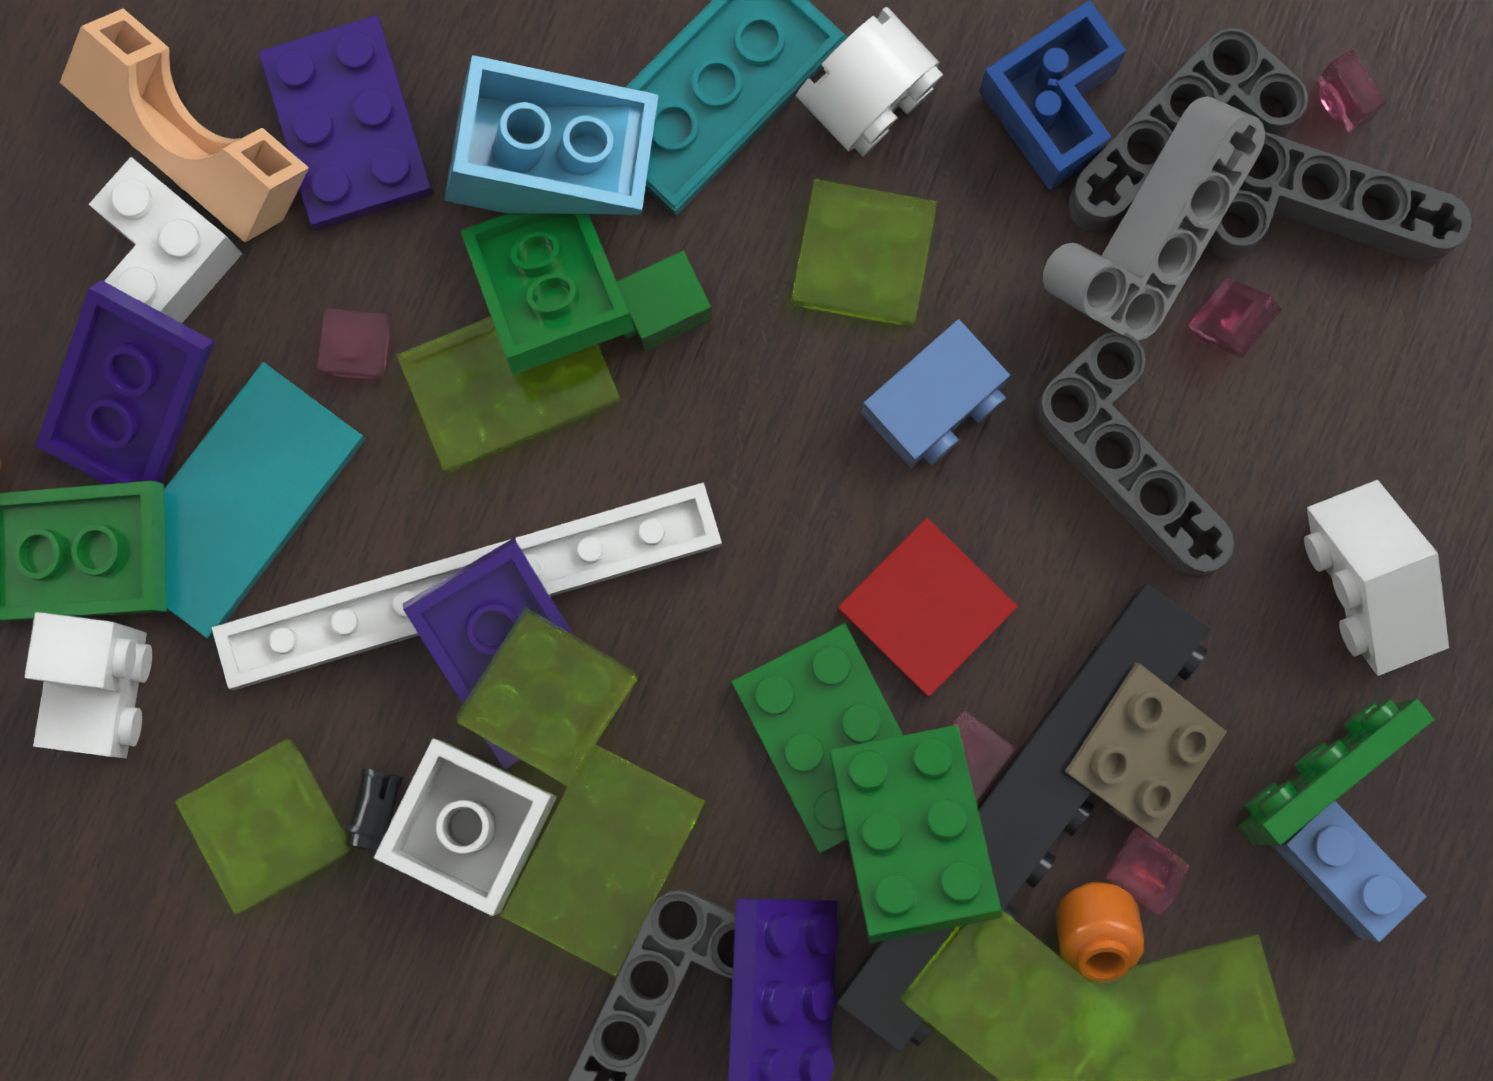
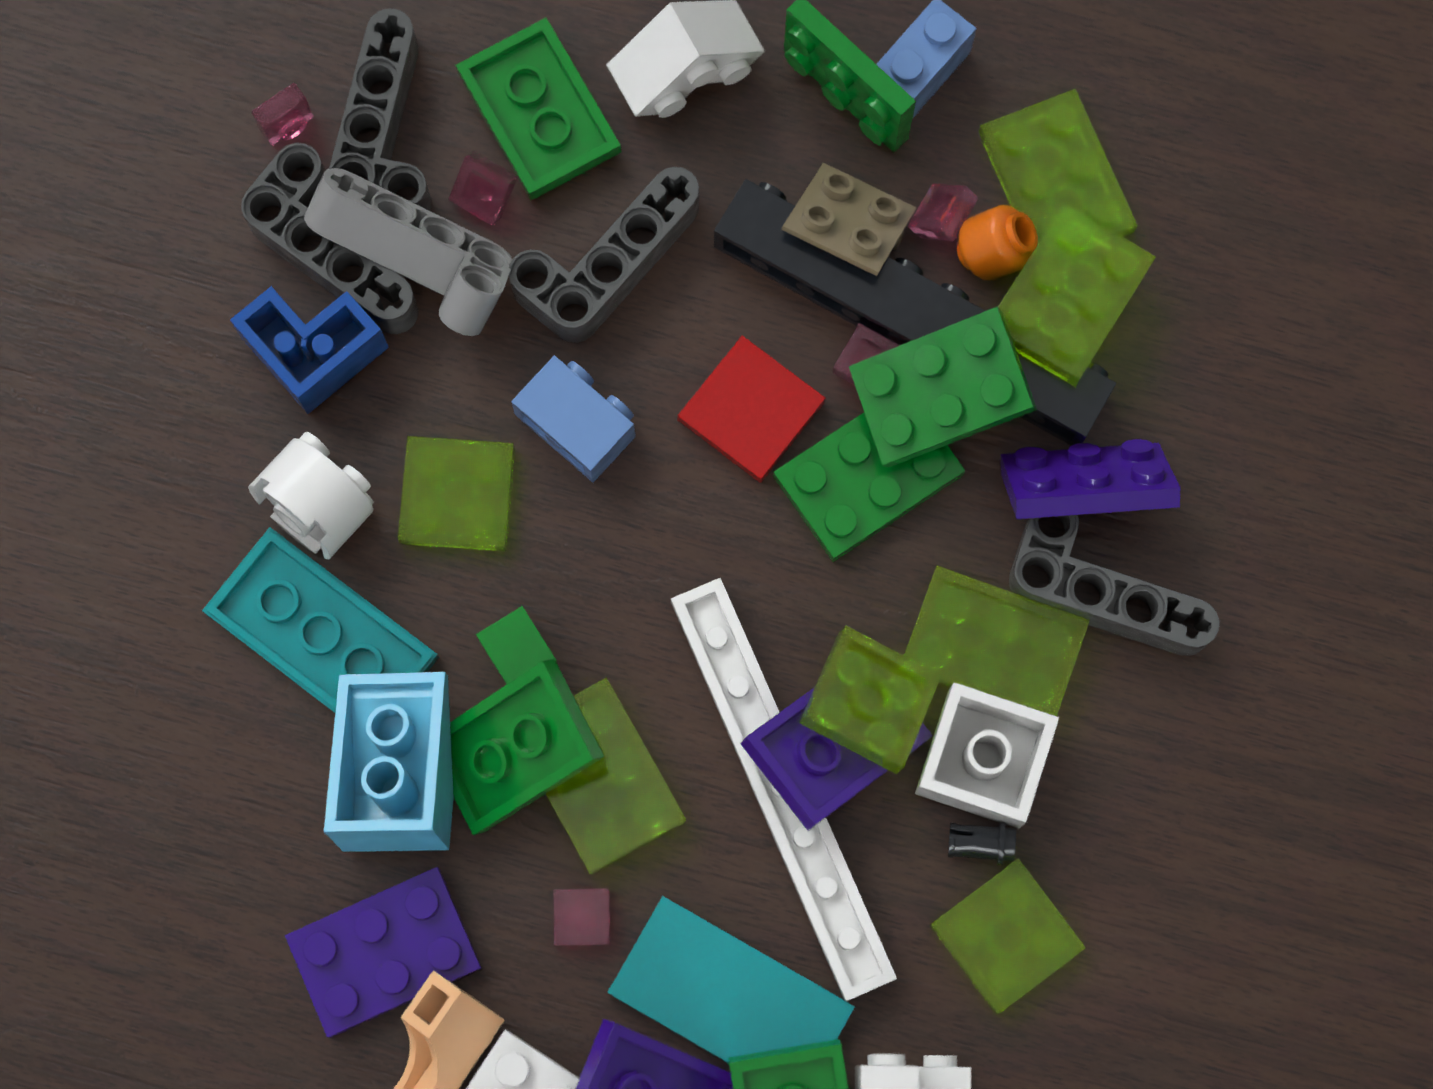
camera: 100 degrees left, 5 degrees down
(1331, 394) = (538, 108): none -> green plate

